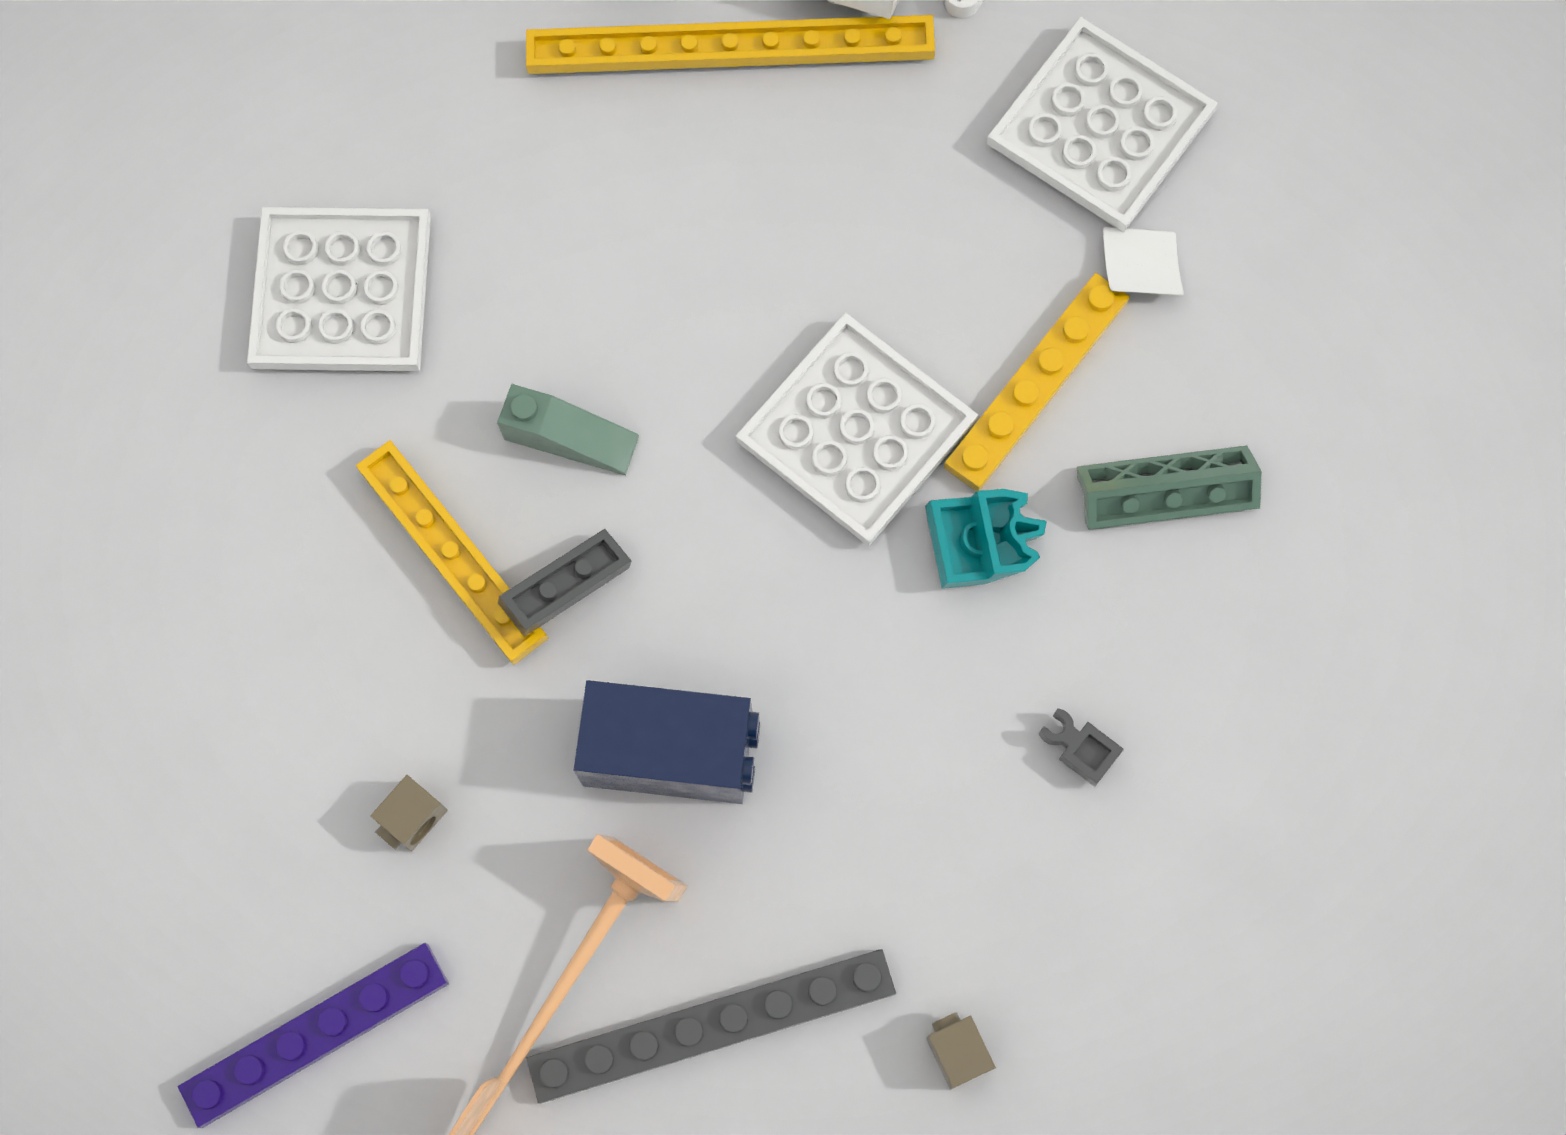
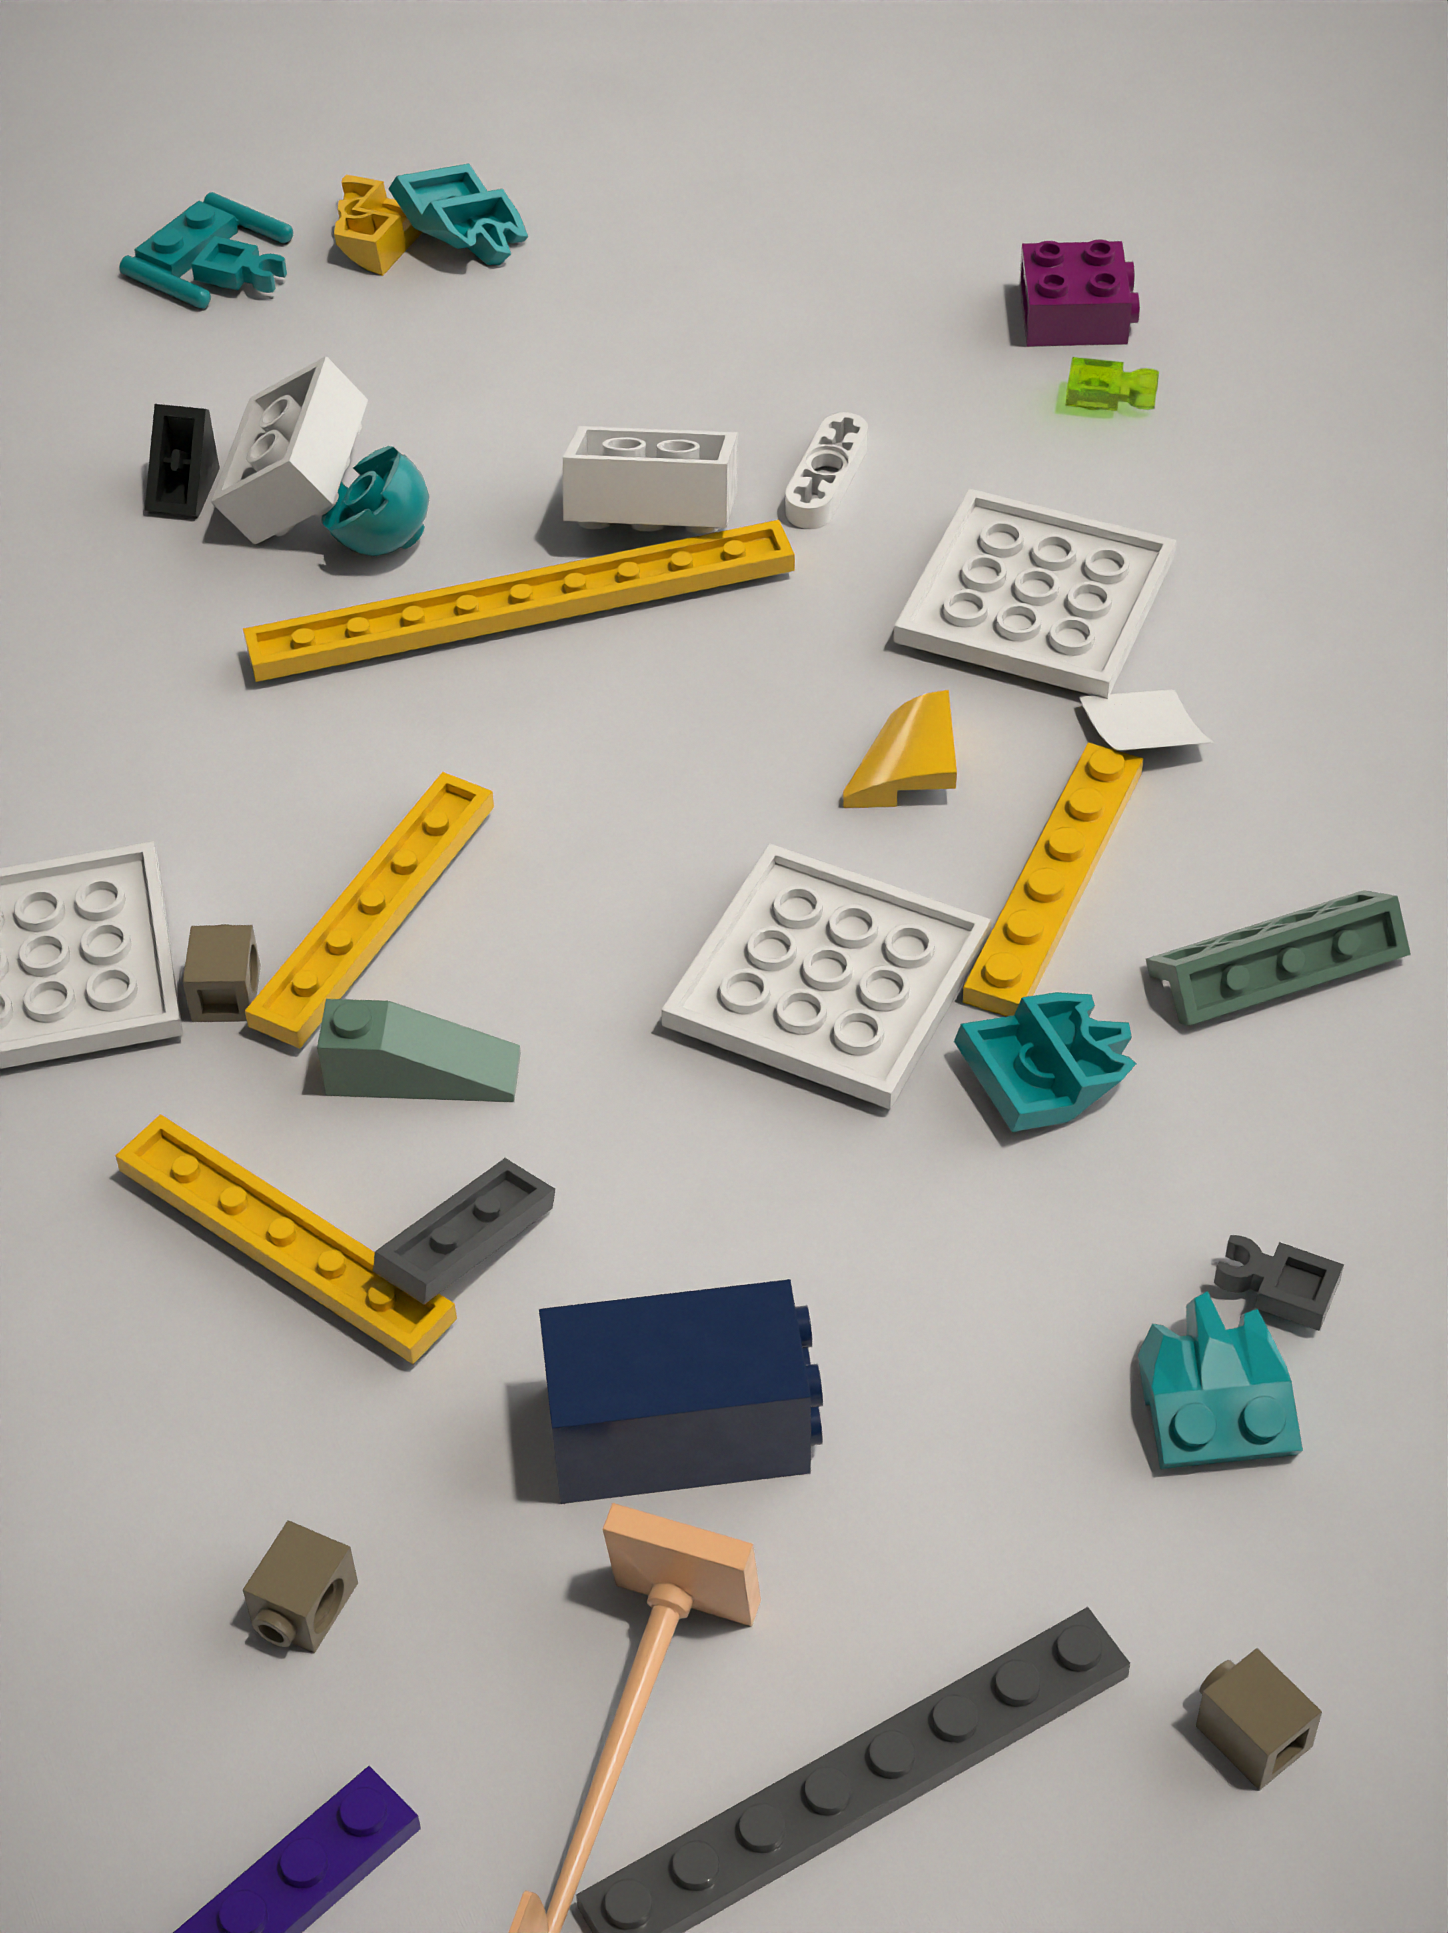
camera: 15 degrees left, 25 degrees down
(452, 330) = (221, 972): none -> dark tan brick
(564, 297) = (369, 910): none -> yellow plate
(965, 252) = (908, 754): none -> yellow slope
(1013, 816) = (1218, 1390): none -> teal plate

